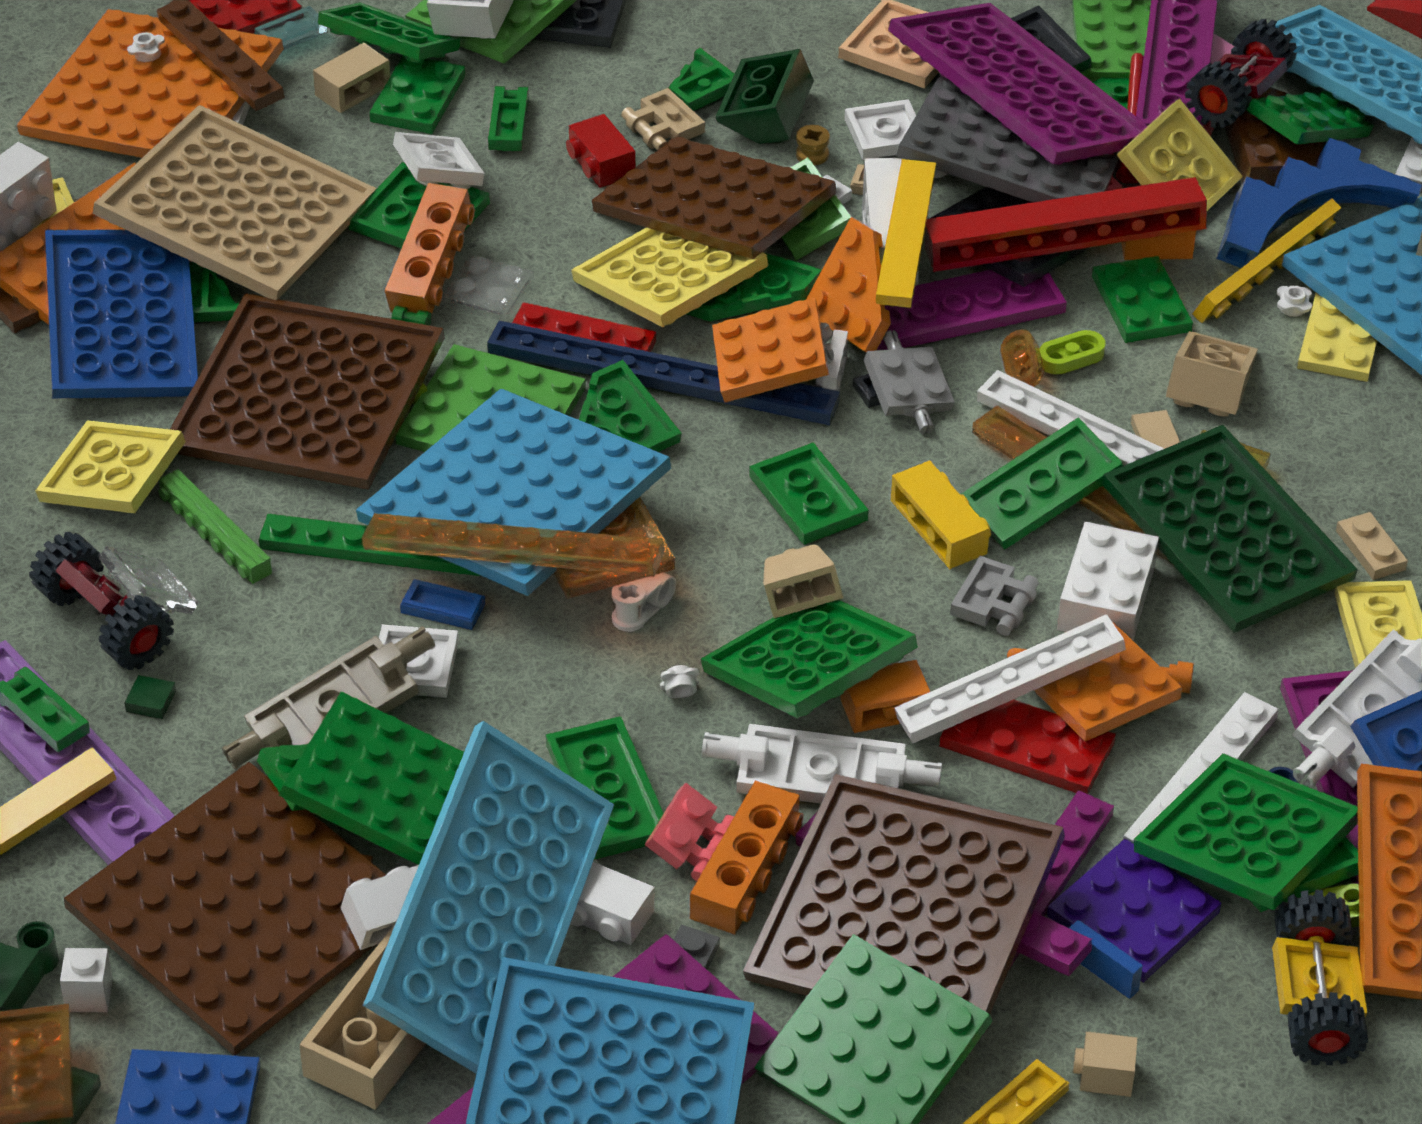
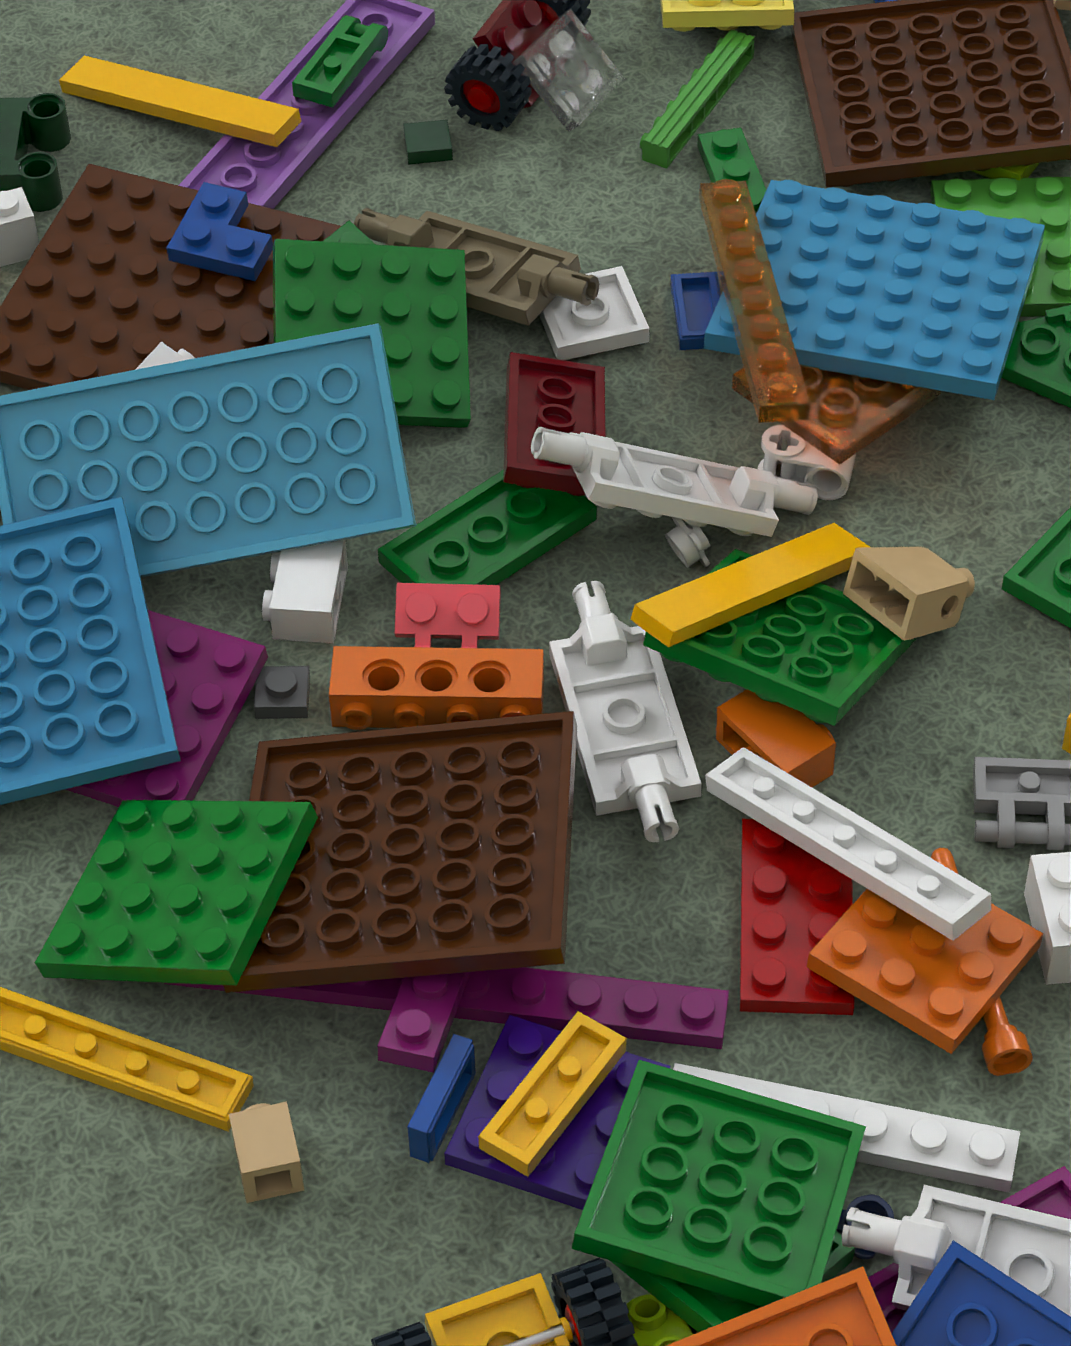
camera: 70 degrees right, 5 degrees up
(217, 841) = (211, 237): none -> blue plate
(533, 709) = (551, 396): none -> dark red plate
(646, 657) = (674, 484): none -> white plate
(763, 650) = (746, 585): none -> yellow tile
(1138, 892) = (552, 1093): none -> yellow plate

